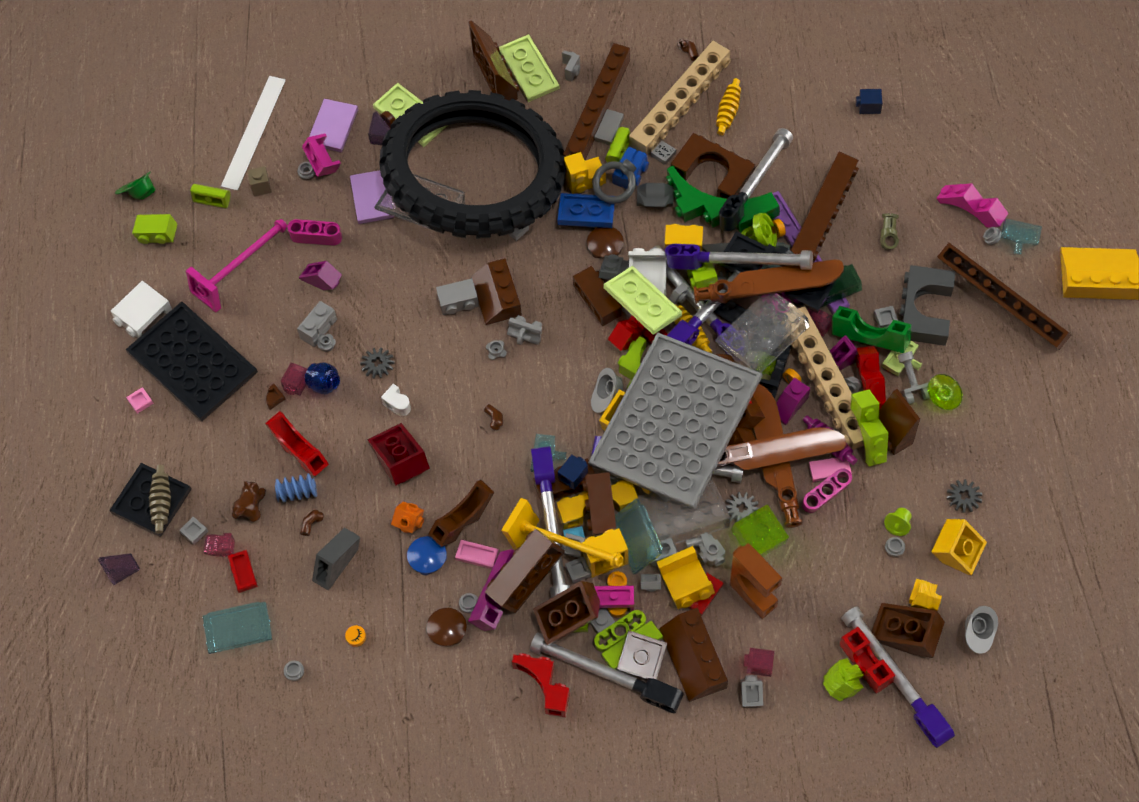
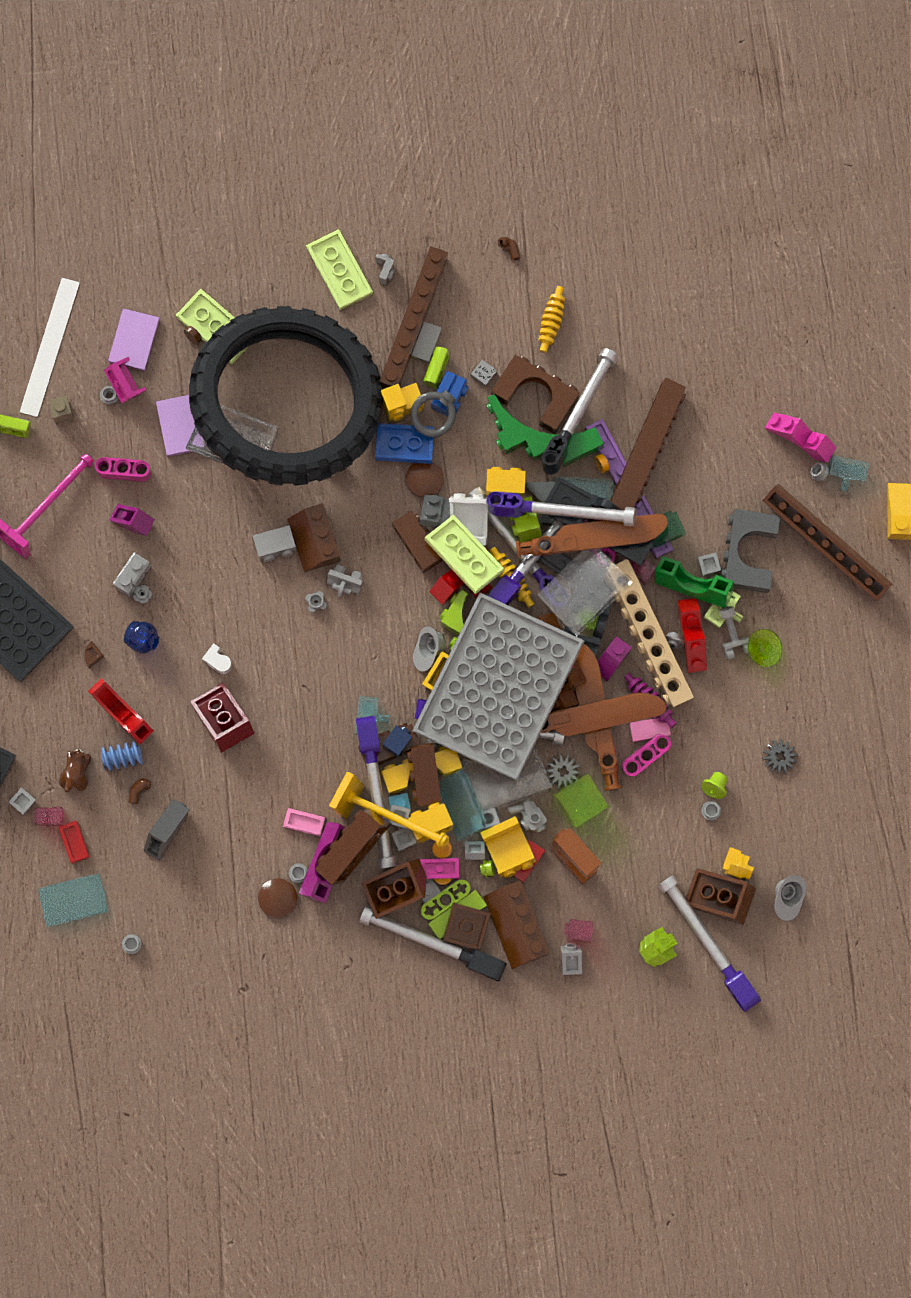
camera: 10 degrees left, 15 degrees up
(294, 379) = (112, 637): clear pink brick -> none
(355, 636) = (189, 908): light orange tile -> none
(377, 129) = (184, 349): clear purple slope -> none
(382, 368) = (189, 620): dark grey gear -> none
(408, 517) = (235, 787): orange brick -> none
(426, 555) = (255, 823): blue dish -> none
(469, 510) = (288, 785): reddish brown arch -> none
(491, 63) = (302, 271): reddish brown slope -> none
(497, 417) = (319, 676): reddish brown arm -> none
(542, 671) = (371, 941): red arch -> none
(655, 195) = (475, 426): dark grey slope -> none
(664, 600) = (487, 868): none -> lime plate
(679, 294) = (501, 543): light grey plate -> none
(688, 87) = (536, 255): tan brick -> none
(761, 230) = (586, 472): lime tile -> none
(790, 374) = (613, 631): light orange tile -> none
(844, 353) = (664, 606): magenta slope -> none
(858, 650) = (675, 922): red arch -> none
(869, 101) = (698, 313): dark blue brick -> none
(873, 431) = (692, 695): lime arch -> none
(889, 229) = (715, 466): olive connector -> none
(899, 421) = (714, 686): reddish brown slope -> none
(959, 545) = (772, 810): yellow slope -> none

